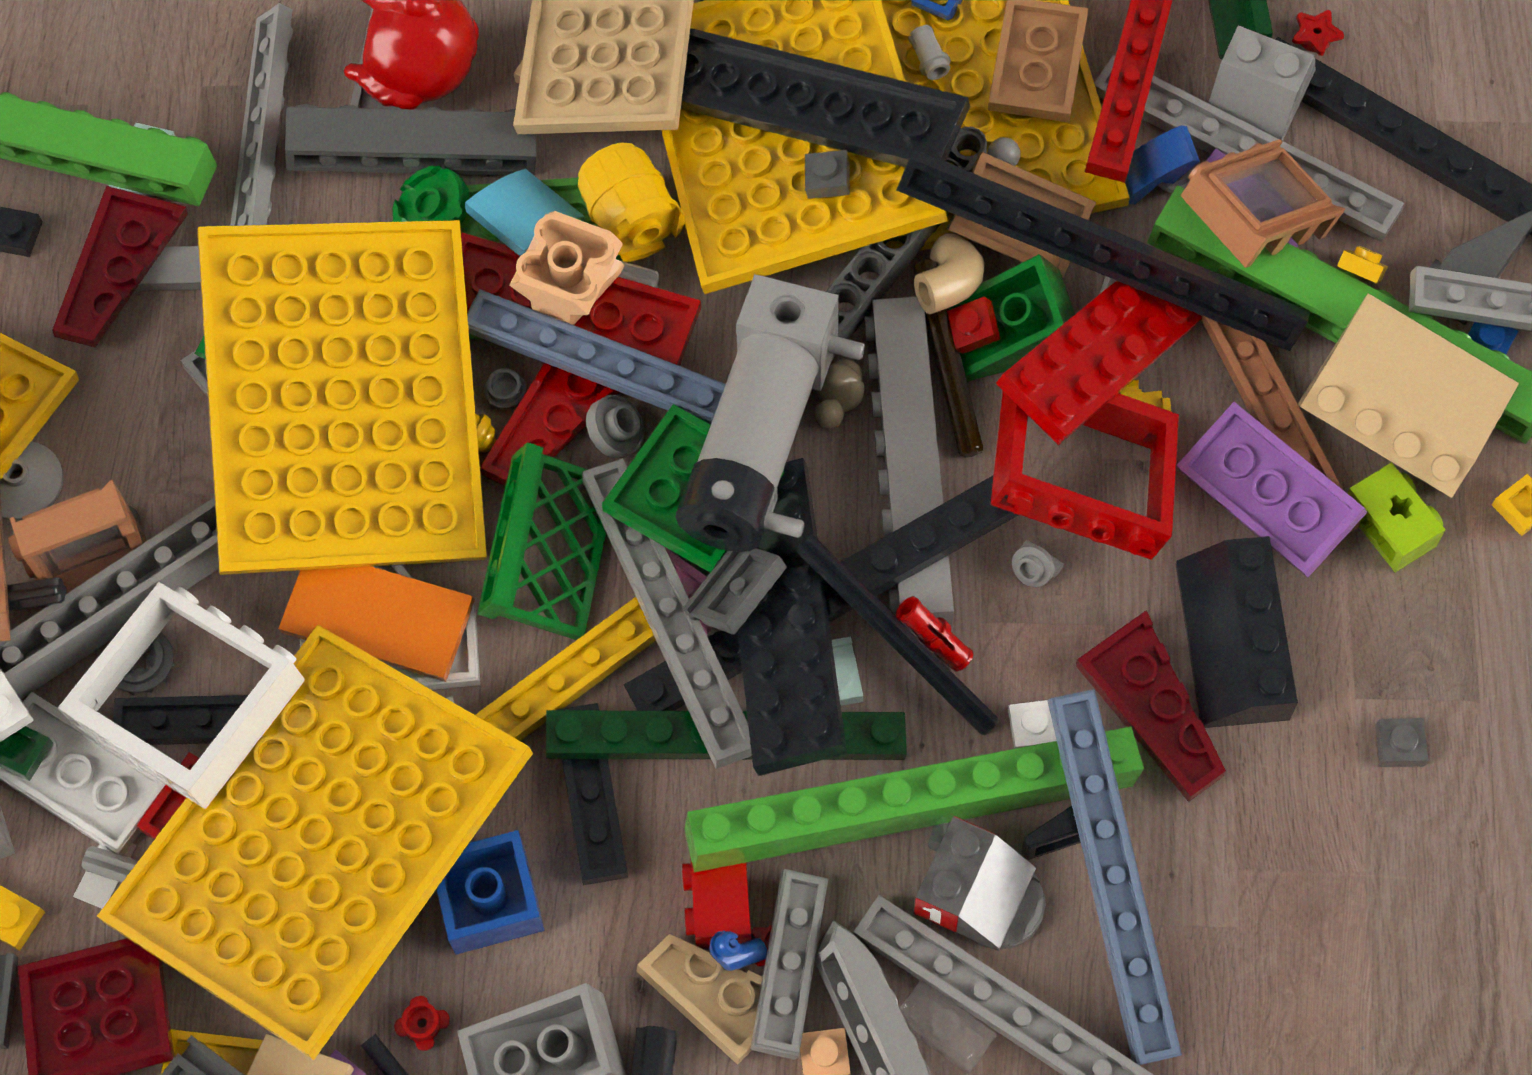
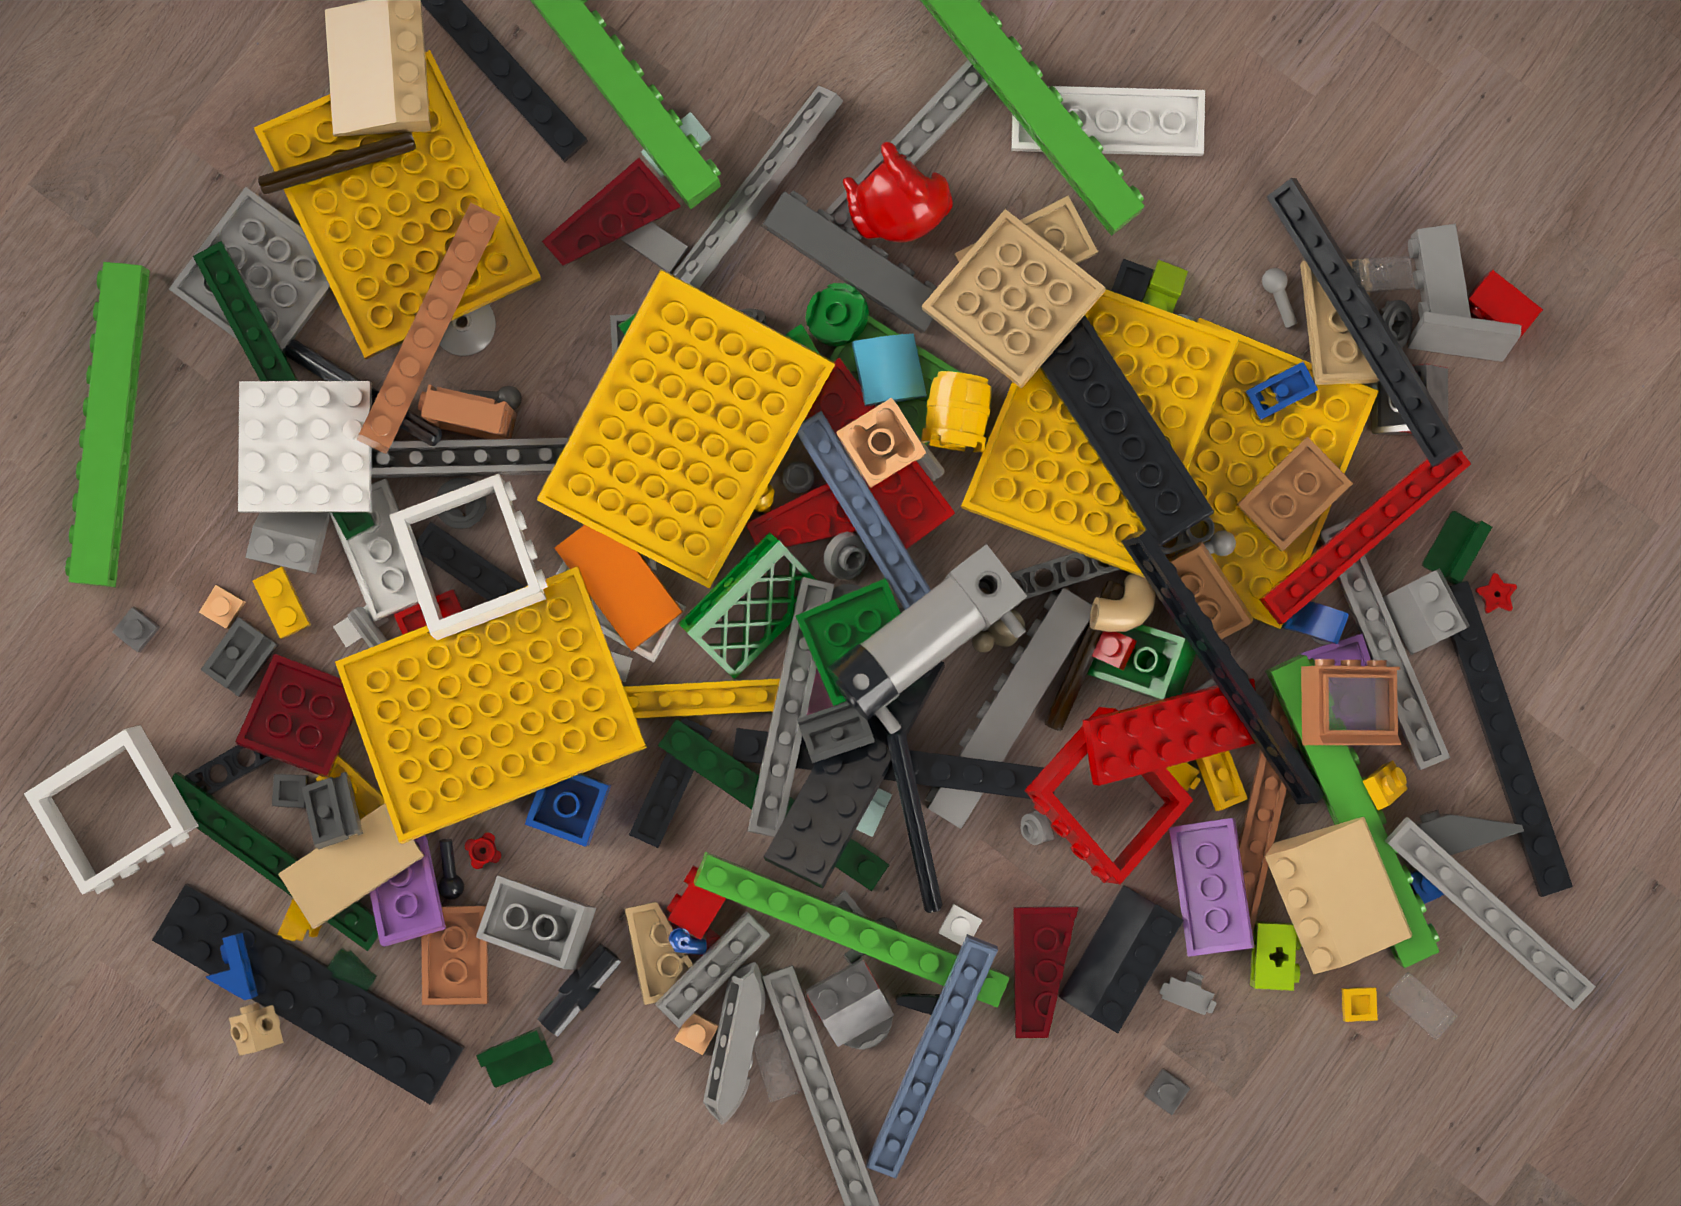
camera: 30 degrees right, 20 degrees up
(827, 174) = (1091, 490): dark grey plate -> none
(932, 60) = (1228, 438): light grey pin -> none
(934, 633) = (939, 834): red pin -> none
(1189, 380) = (1222, 780): none -> yellow plate
(1339, 623) = (1189, 993): none -> light grey piece

